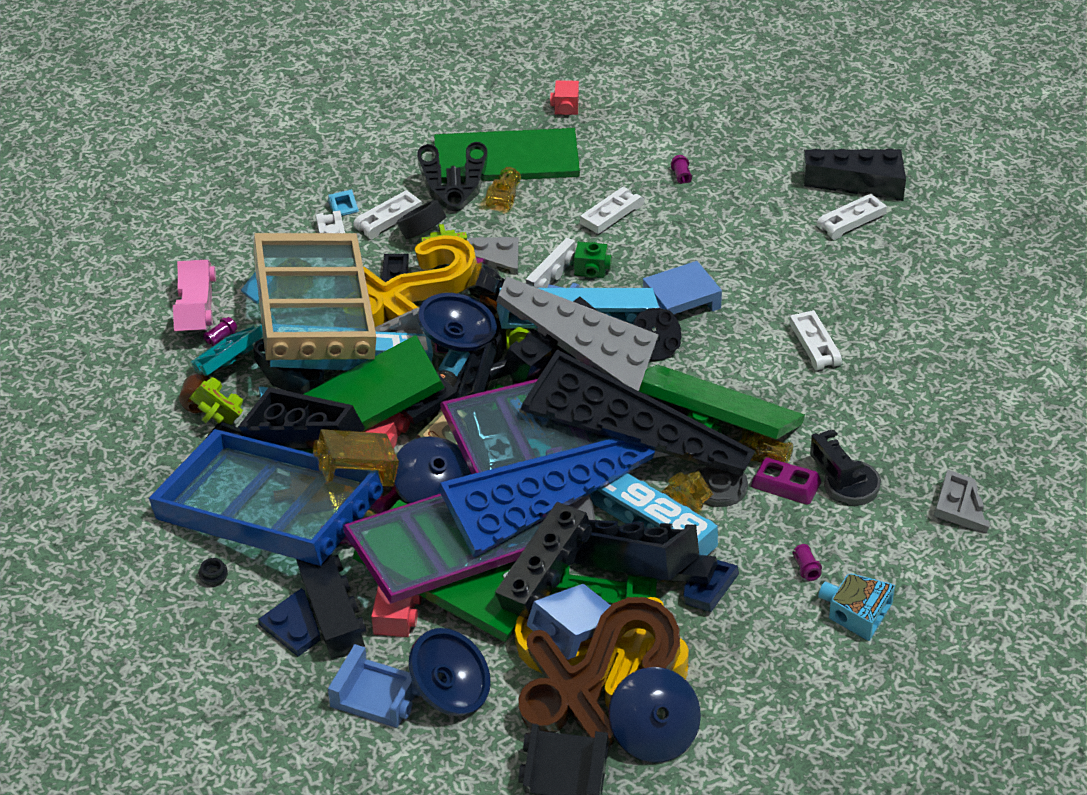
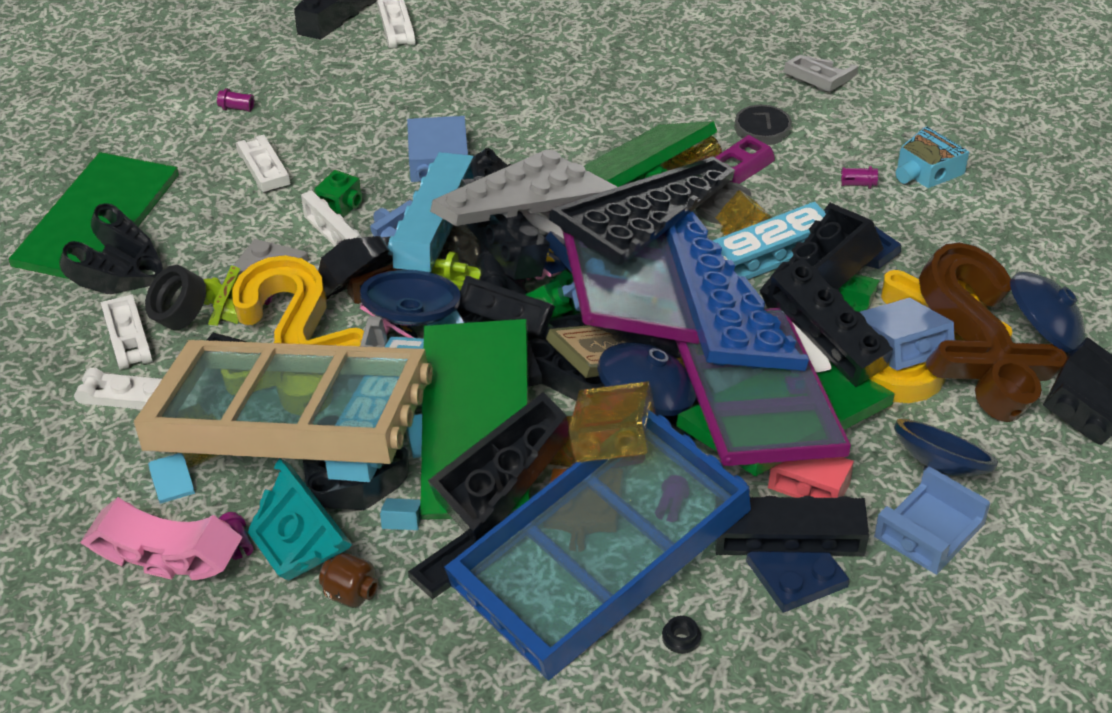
camera: 70 degrees left, 0 degrees up
(216, 404) = (392, 557): lime hips -> none
(344, 202) = (67, 368): medium azure slope -> none
(503, 191) = (164, 230): clear yellow connector -> none
(565, 97) = (43, 142): coral brick -> none
(815, 340) = (559, 89): white plate -> none
(835, 461) = (744, 118): black hinge -> none

